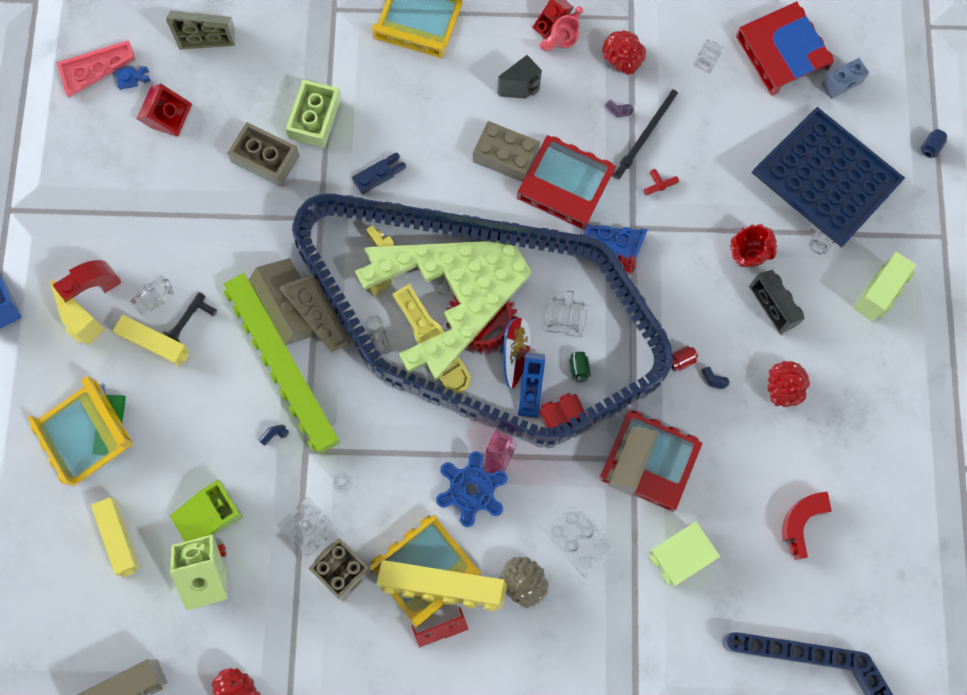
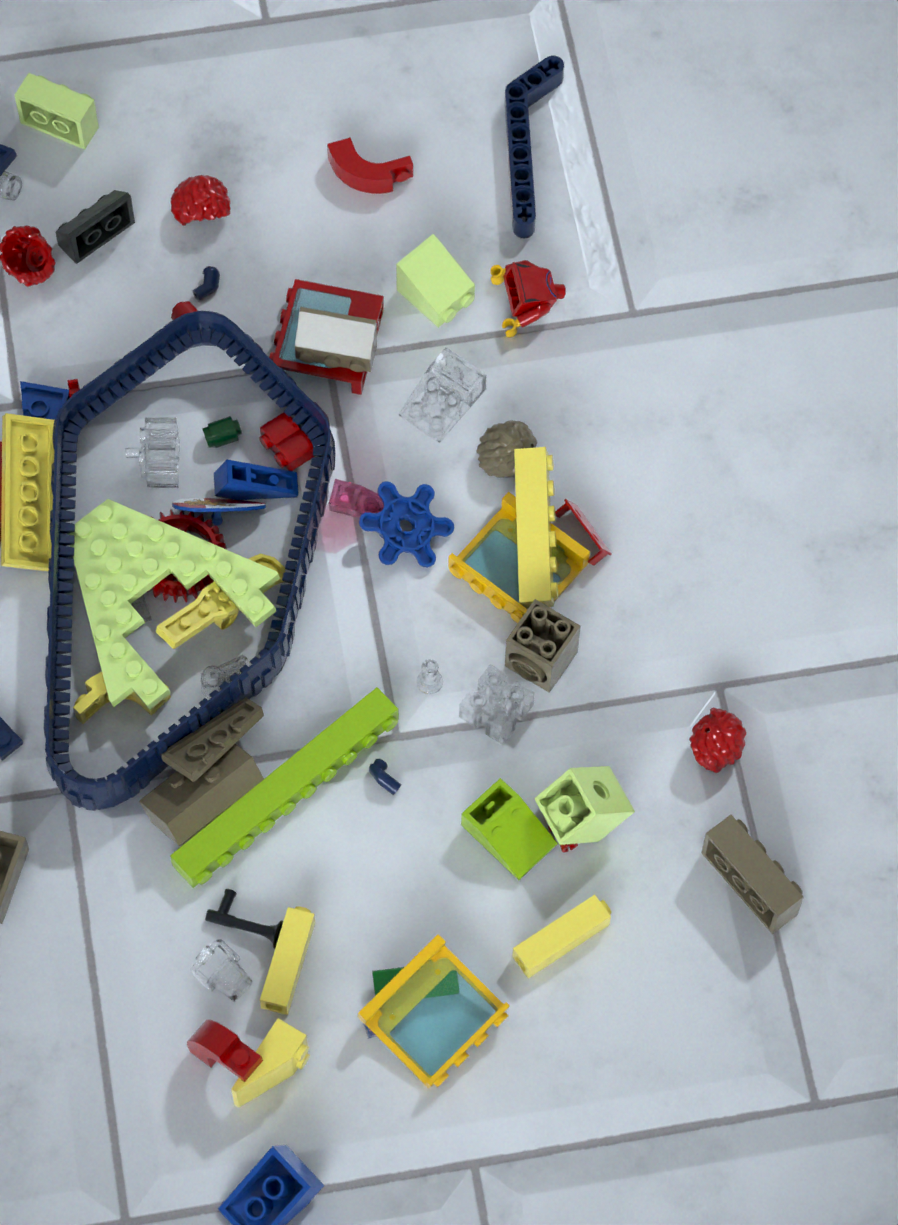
camera: 100 degrees left, 10 degrees down
(552, 214) = (26, 491): none -> light yellow plate
(664, 630) = (529, 292): none -> red torso

